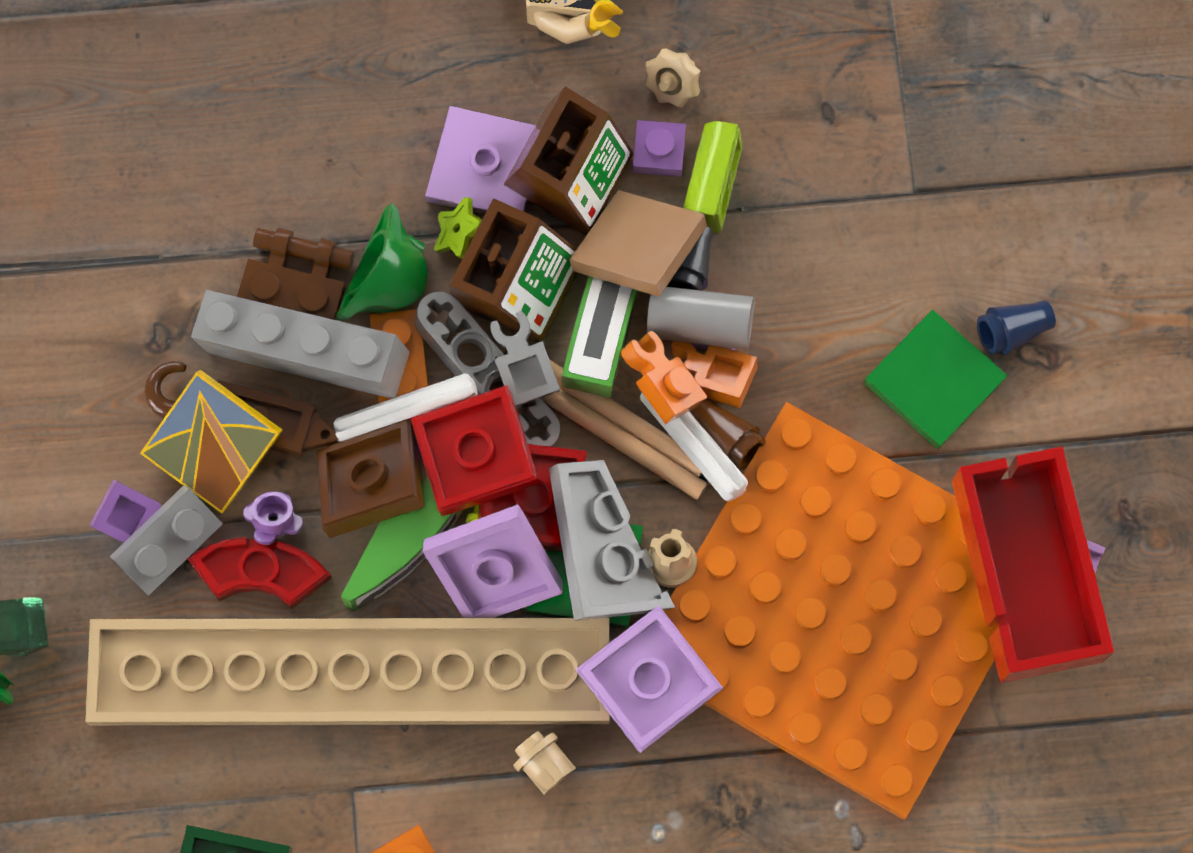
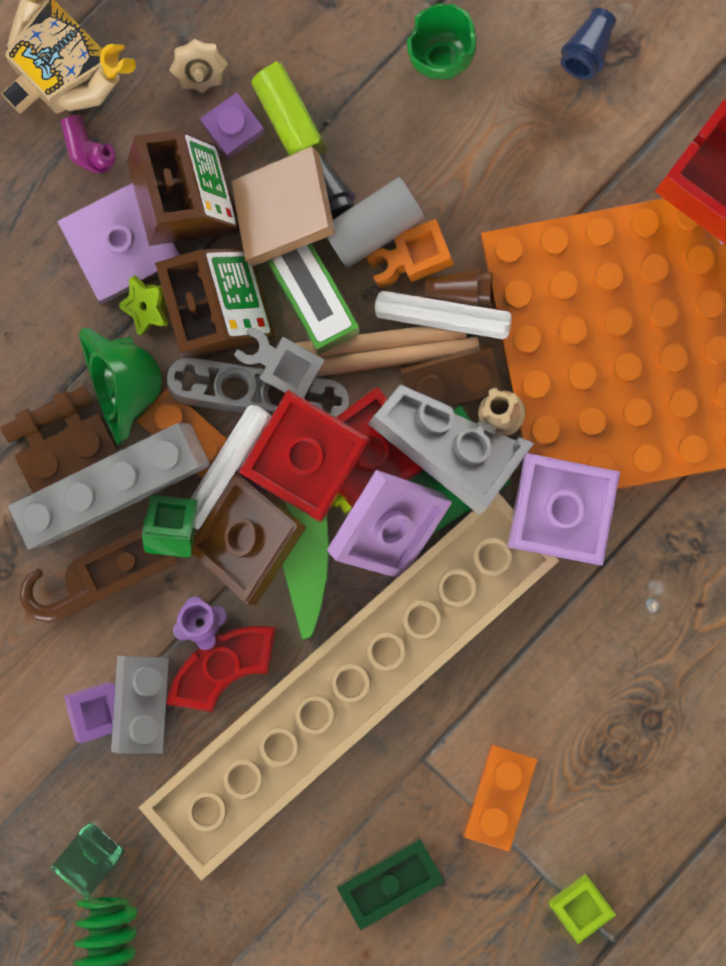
camera: 40 degrees left, 10 degrees up
(211, 441) = (109, 609): tile -> none
(318, 417) = (170, 526): none -> green slope
(521, 68) = (84, 151): none -> magenta arm
(543, 761) = (538, 627): tan hose -> none
(658, 499) = (455, 376): none -> reddish brown plate
(664, 382) = (394, 290): orange plate -> none
(889, 222) = (442, 42): none -> green hair
(935, 379) = (567, 129): green tile -> none

